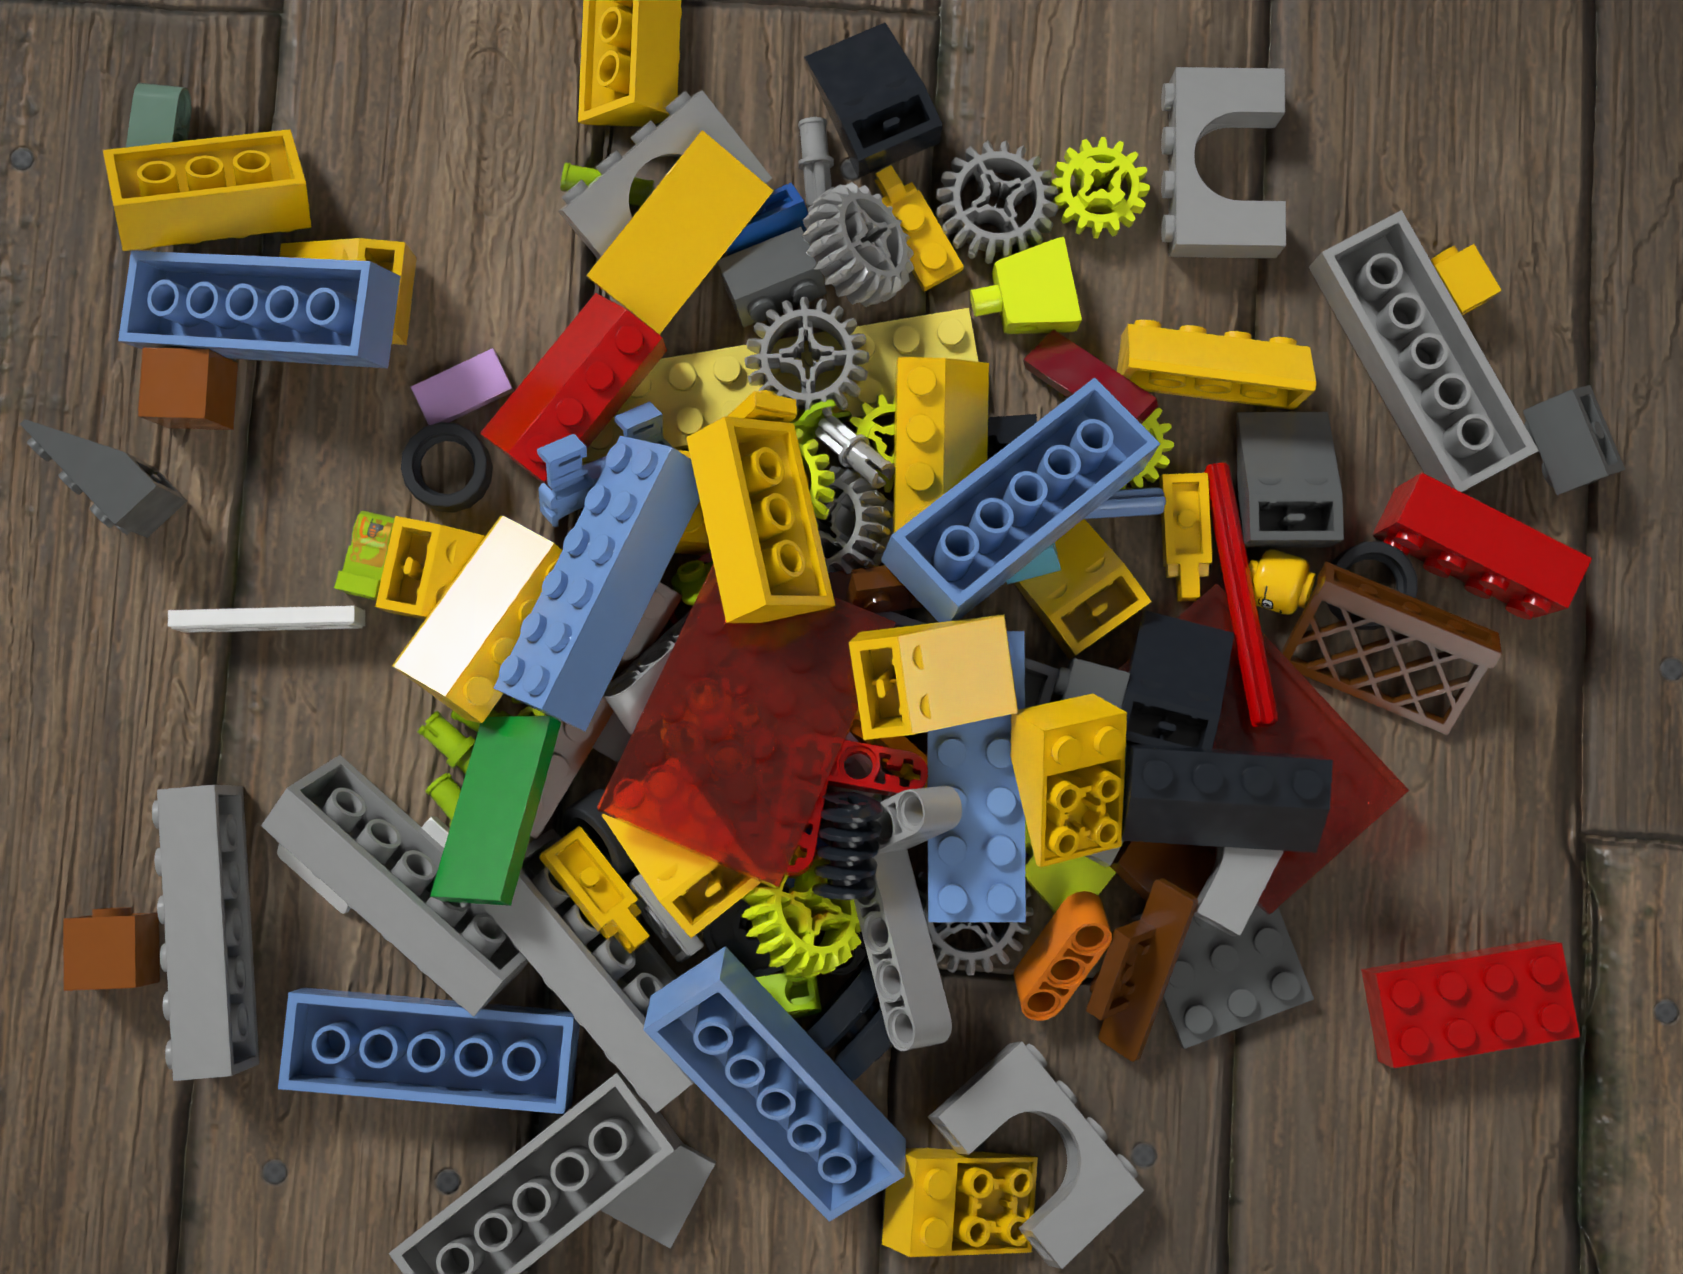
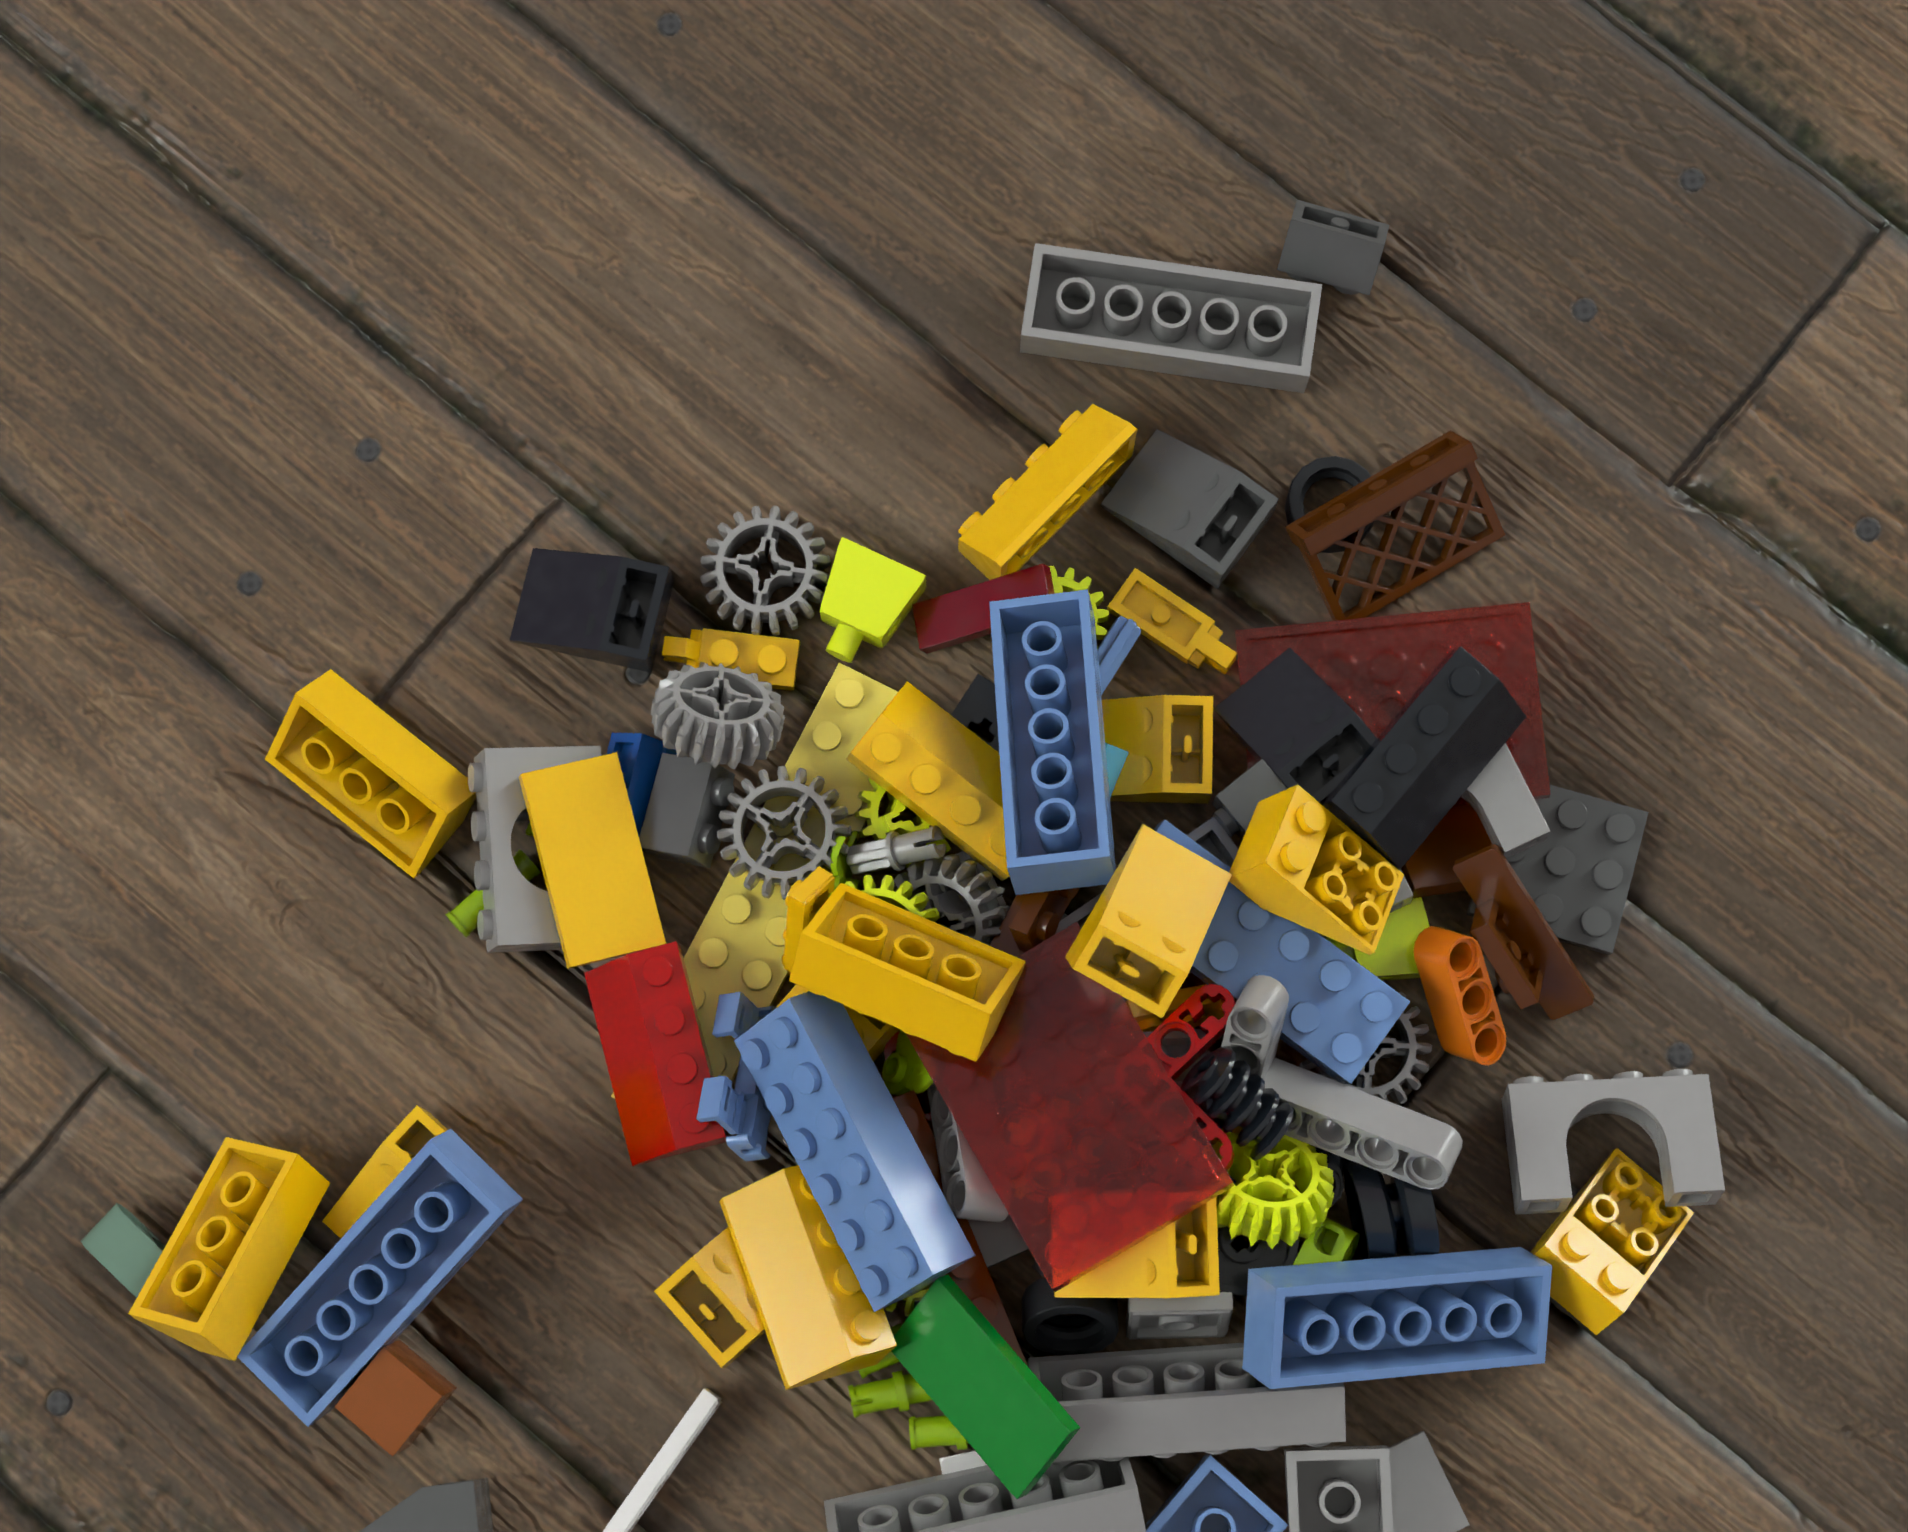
camera: 50 degrees left, 5 degrees down
(366, 556) = (665, 1345): lime leg -> none
(435, 434) = (610, 1192): black tyre -> none
(462, 388) = (575, 1154): lavender tile -> none
(596, 888) = (1114, 1352): yellow hinge -> none
(815, 157) = (610, 698): light grey axle -> none
(1109, 202) = (837, 474): neon yellow gear -> none
(1198, 218) = (909, 412): light grey arch -> none
(1241, 597) = (1262, 618): red axle -> none
(1281, 581) = (1273, 577): yellow head -> none
(1466, 277) = (1128, 232): yellow brick -> none
(1470, 1003) = (1743, 685): red brick -> none
(1481, 548) = (1368, 391): red brick -> none

